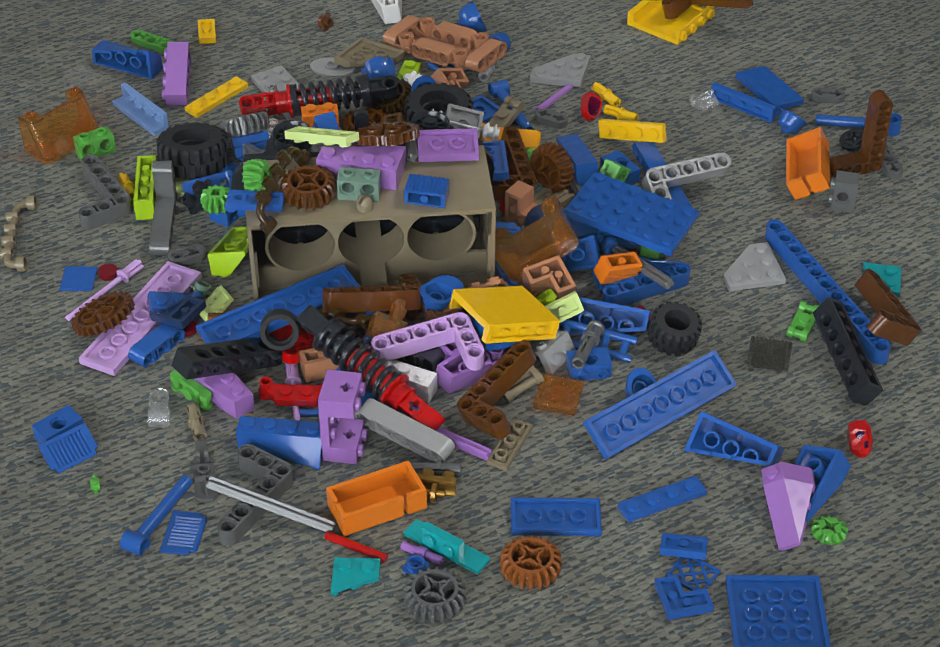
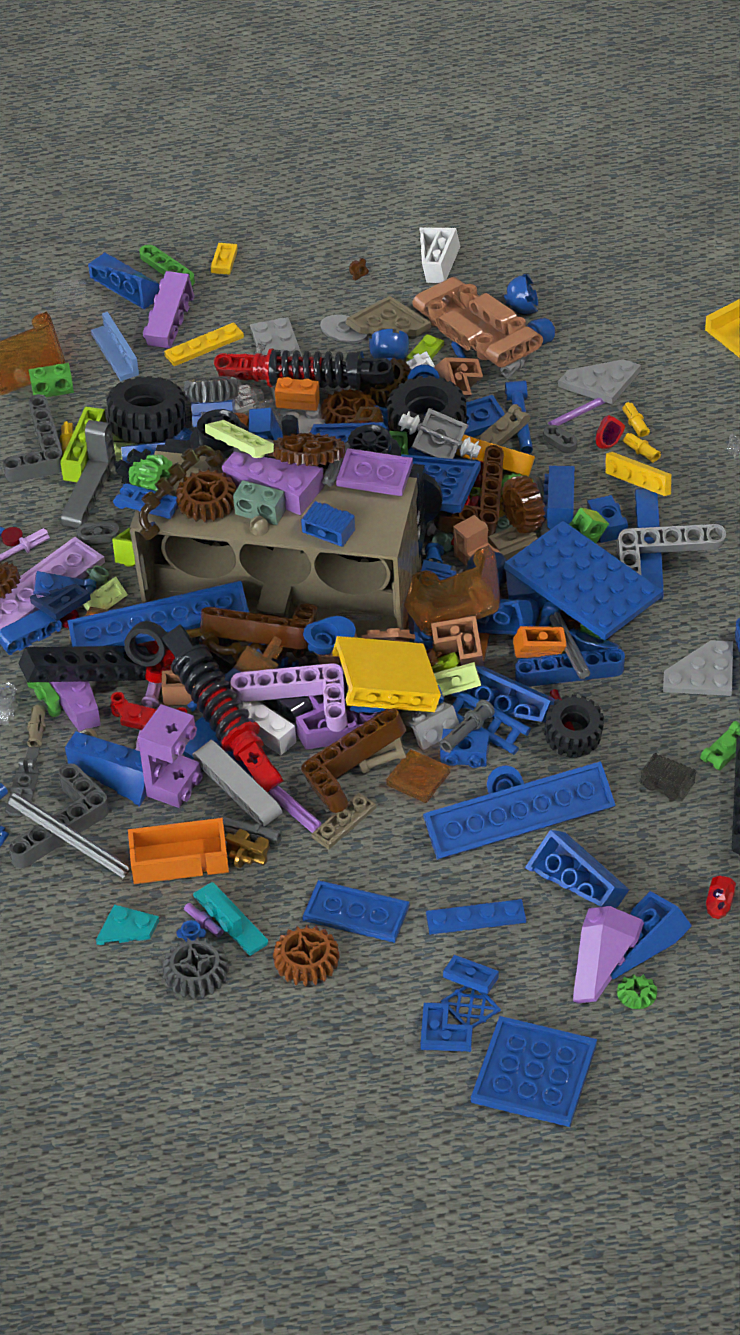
camera: 20 degrees right, 5 degrees up
(355, 546) = (141, 897): red bar -> none

